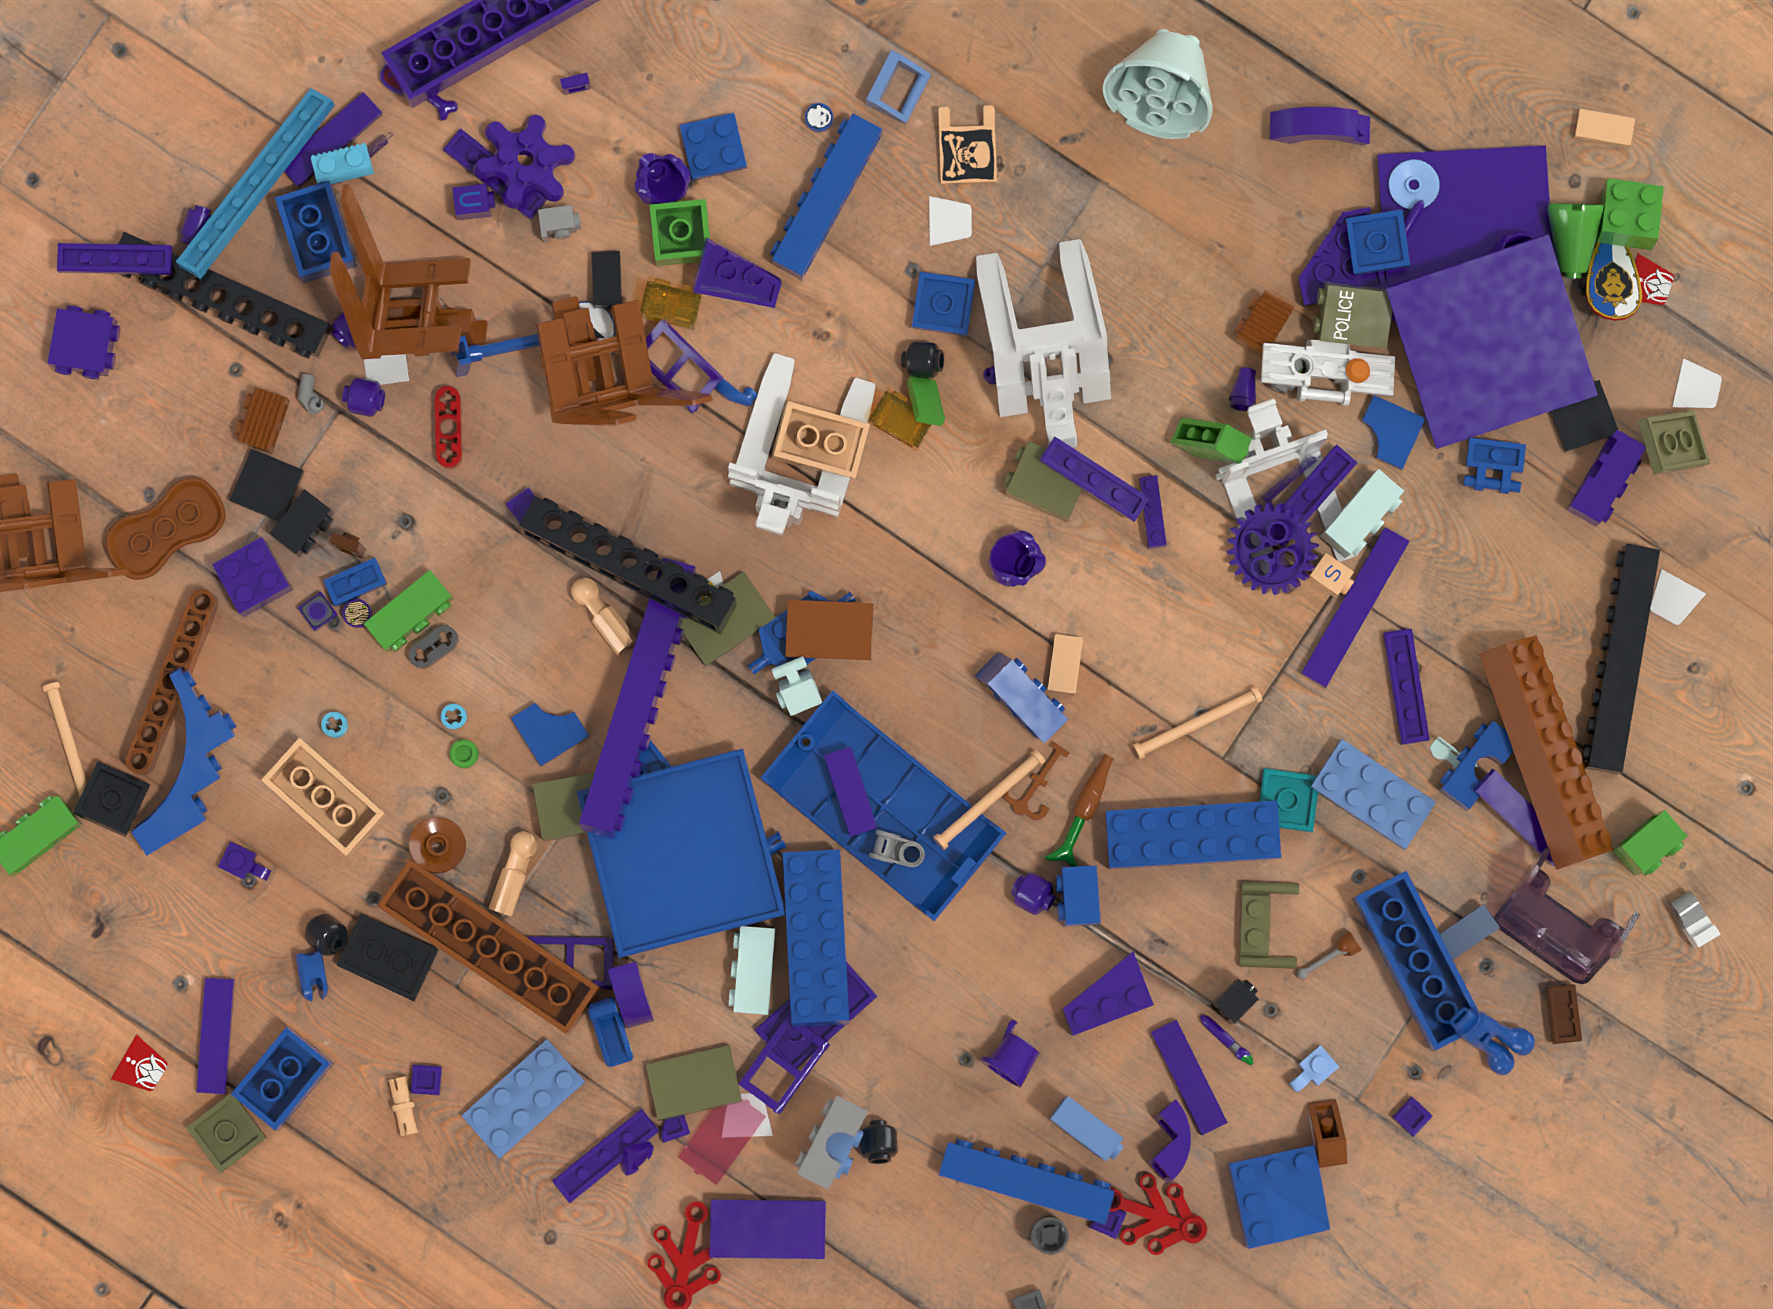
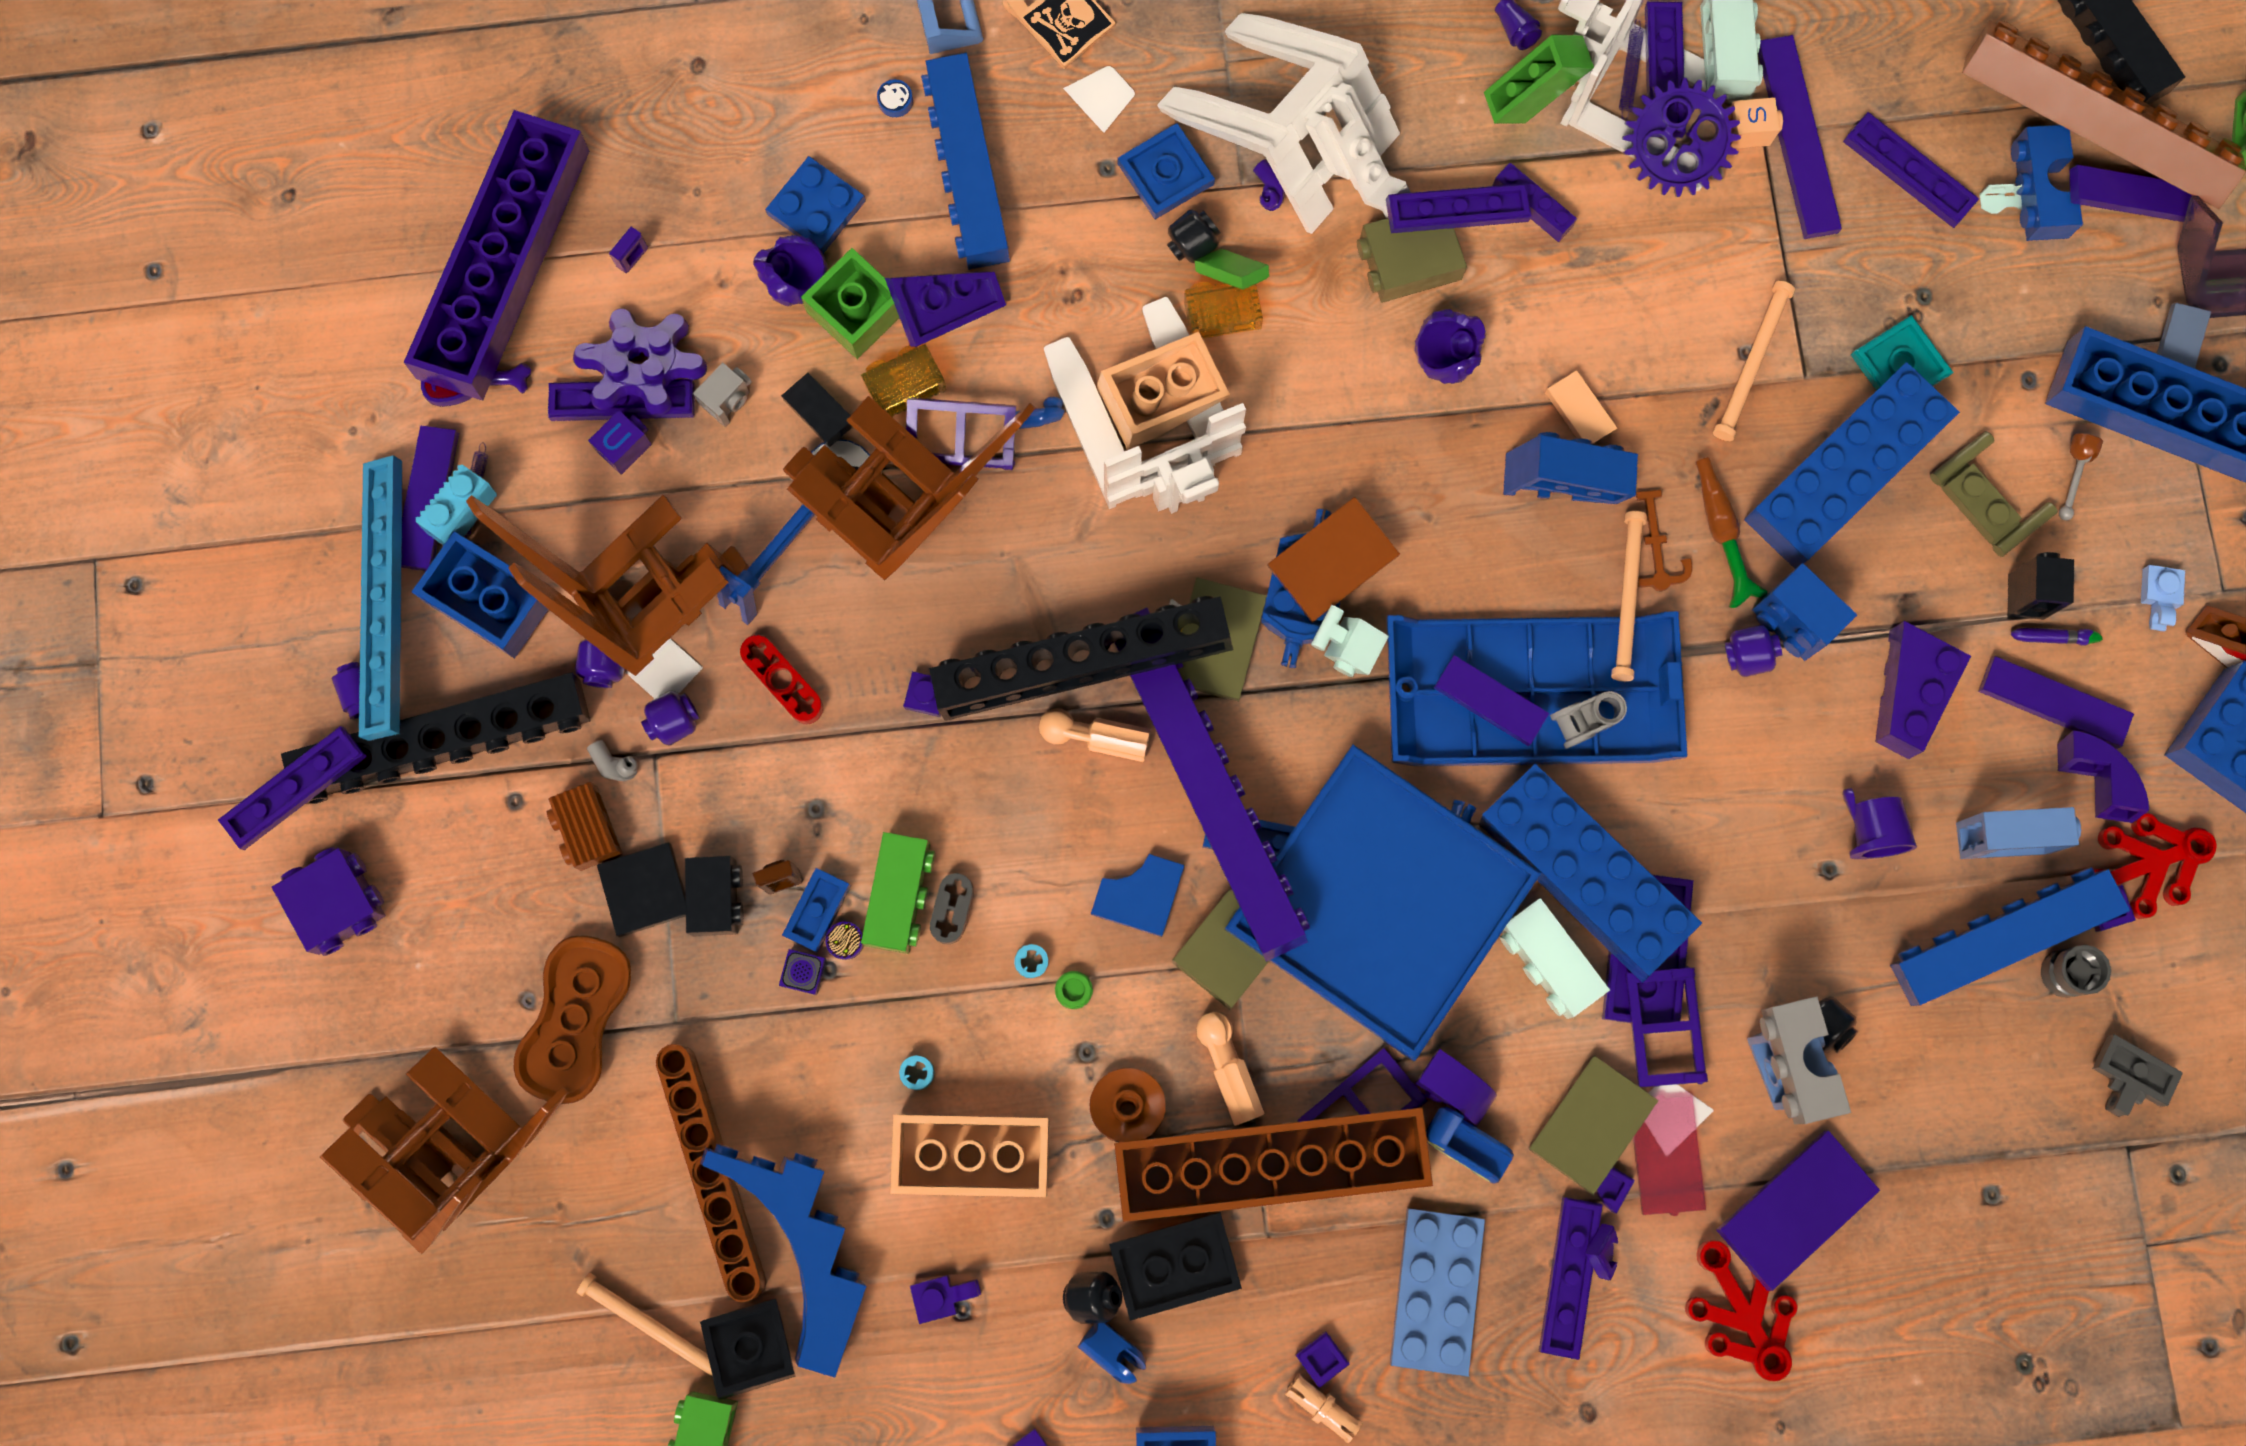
camera: 40 degrees left, 5 degrees down
(252, 577) = (705, 992): dark purple brick -> none
(1372, 794) = (1975, 290): medium blue plate -> none

